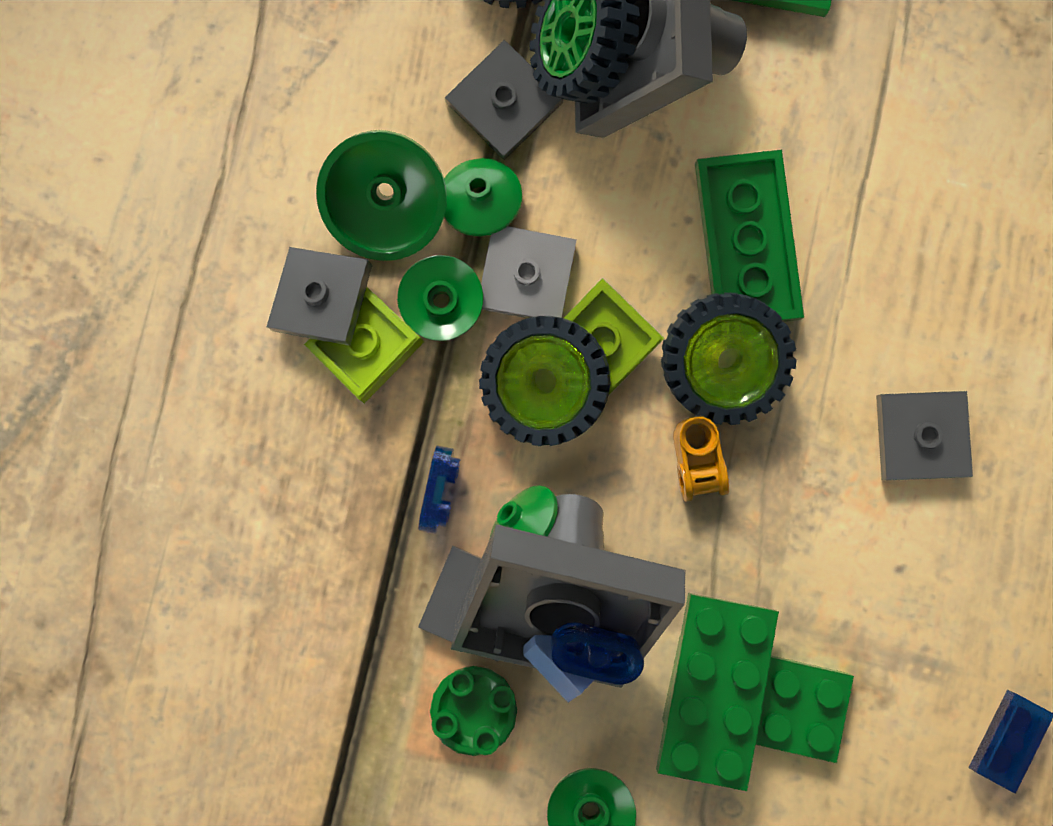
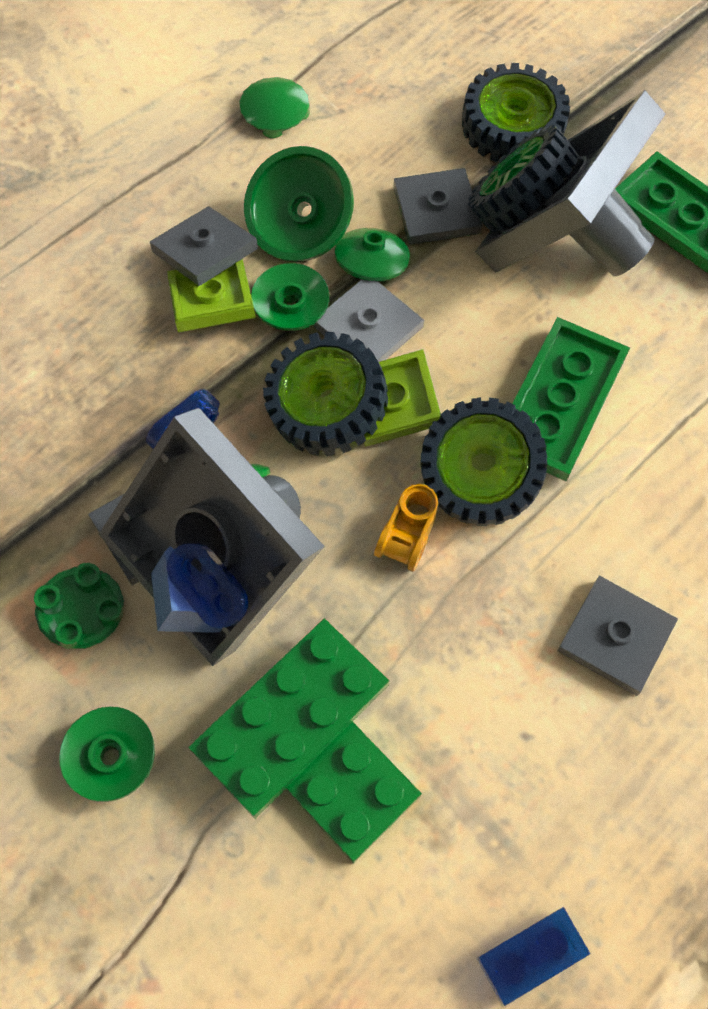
camera: 30 degrees right, 20 degrees down
(265, 82) = (274, 105): none -> green dish

